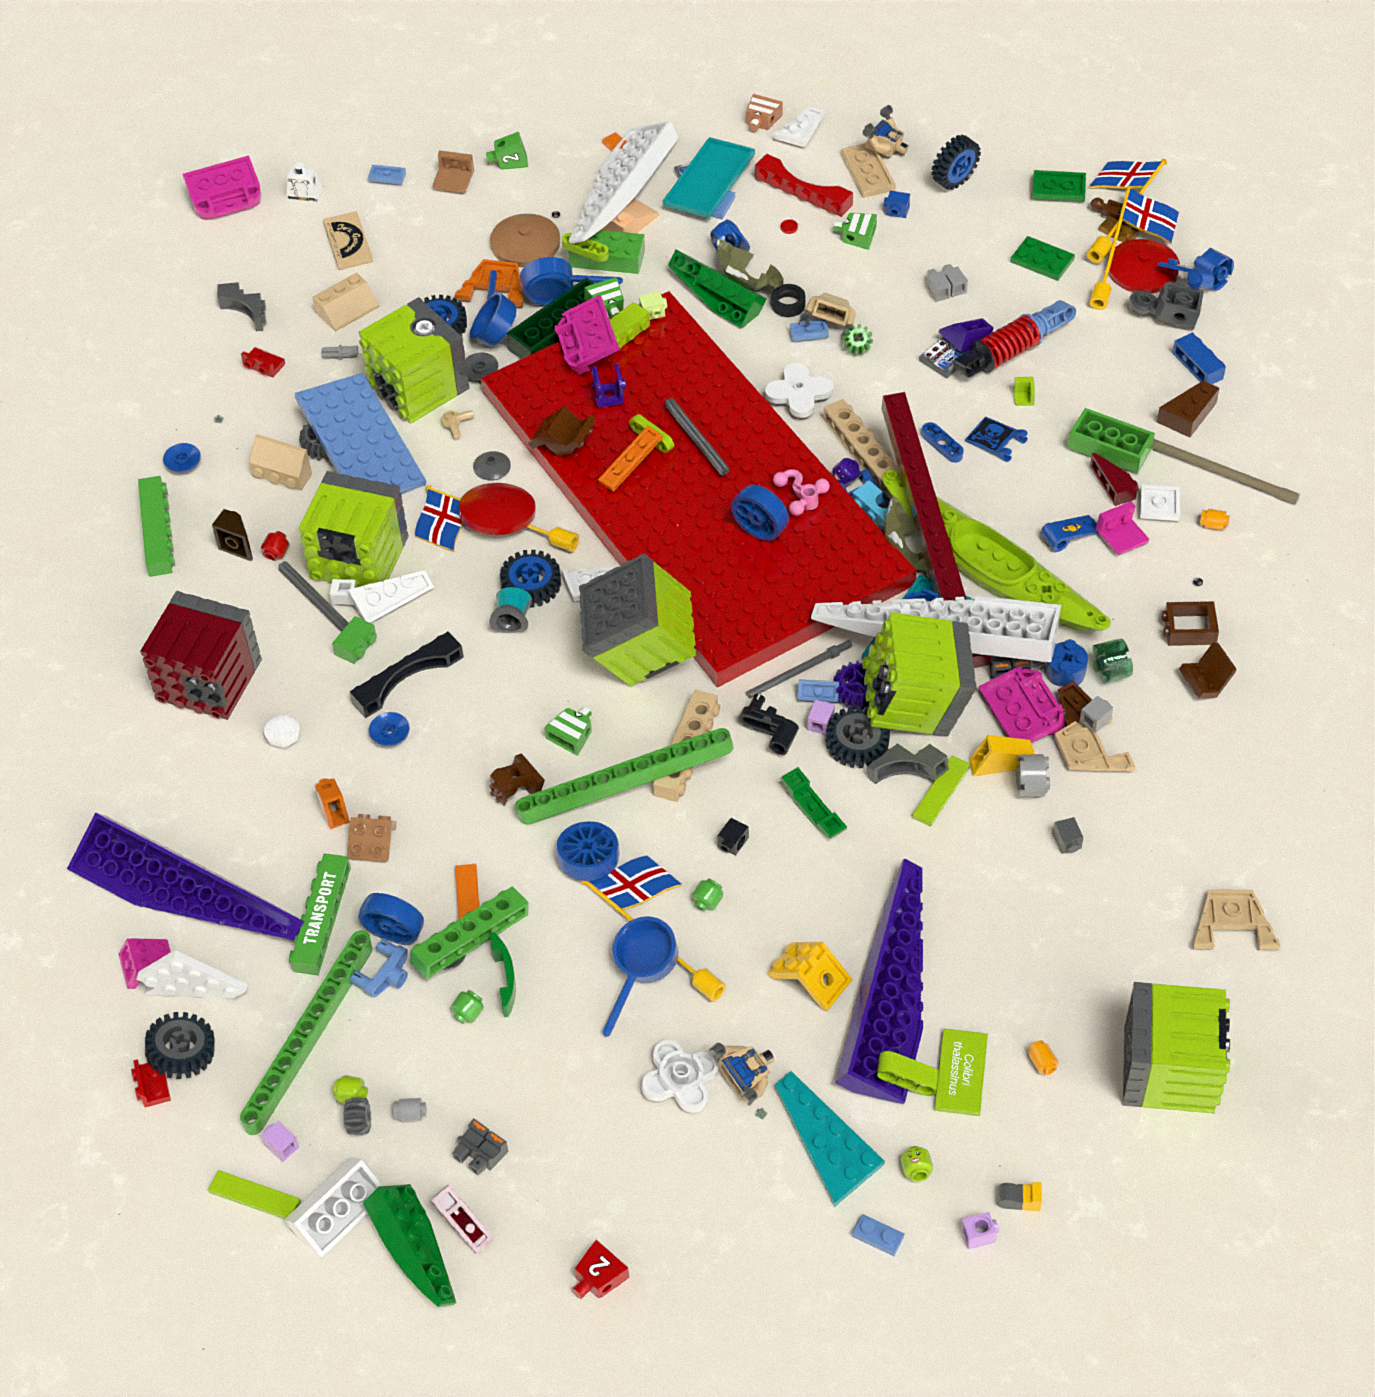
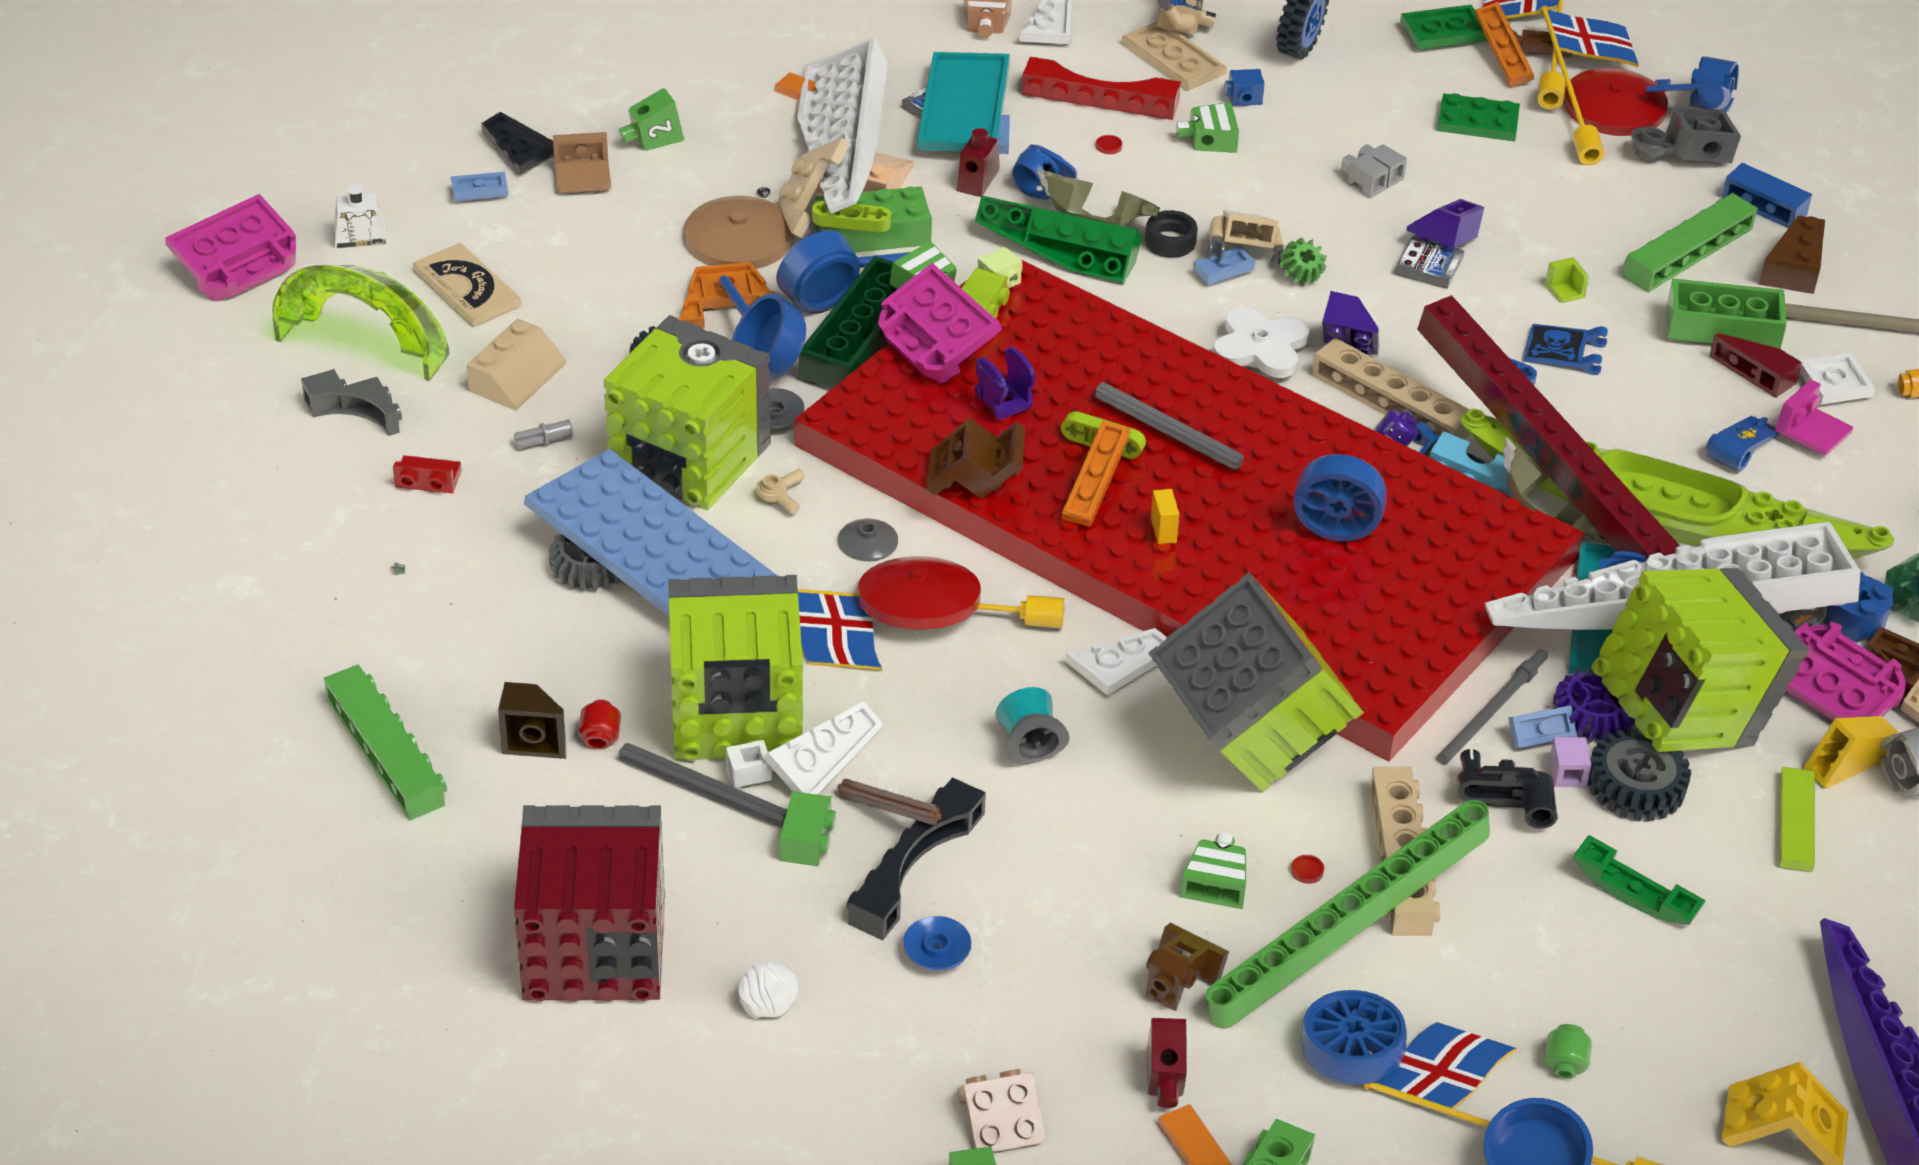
camera: 25 degrees left, 10 degrees down
(181, 457) = (373, 633): blue dish -> none
(280, 462) = (543, 602): tan slope -> none
(289, 259) = (414, 324): none -> clear neon green windscreen
(329, 793) = (913, 1073): orange torso -> none
(404, 634) = (889, 801): none -> reddish brown axle
(424, 147) = (517, 142): none -> black wing
(472, 835) = (1167, 1060): none -> dark red torso
(530, 567) = (1026, 662): wheel -> none
(567, 220) = (804, 181): none -> tan wing
(628, 741) = (1307, 869): none -> red piece
(655, 497) = (1164, 516): none -> yellow piece
(692, 224) = (979, 153): none -> dark red torso
(733, 836) = (1551, 958): black brick -> none
(807, 493) = (1382, 459): bright pink piece -> none
(855, 391) = (1350, 323): none -> dark purple slope
(898, 760) = (1717, 791): dark grey arch -> none
(1013, 339) = (1514, 218): piece -> none
(1088, 208) = (1504, 44): none -> orange tile
(1124, 382) = (1689, 242): none -> bright green brick
(1125, 234) = (1542, 61): pearl gold plate -> none

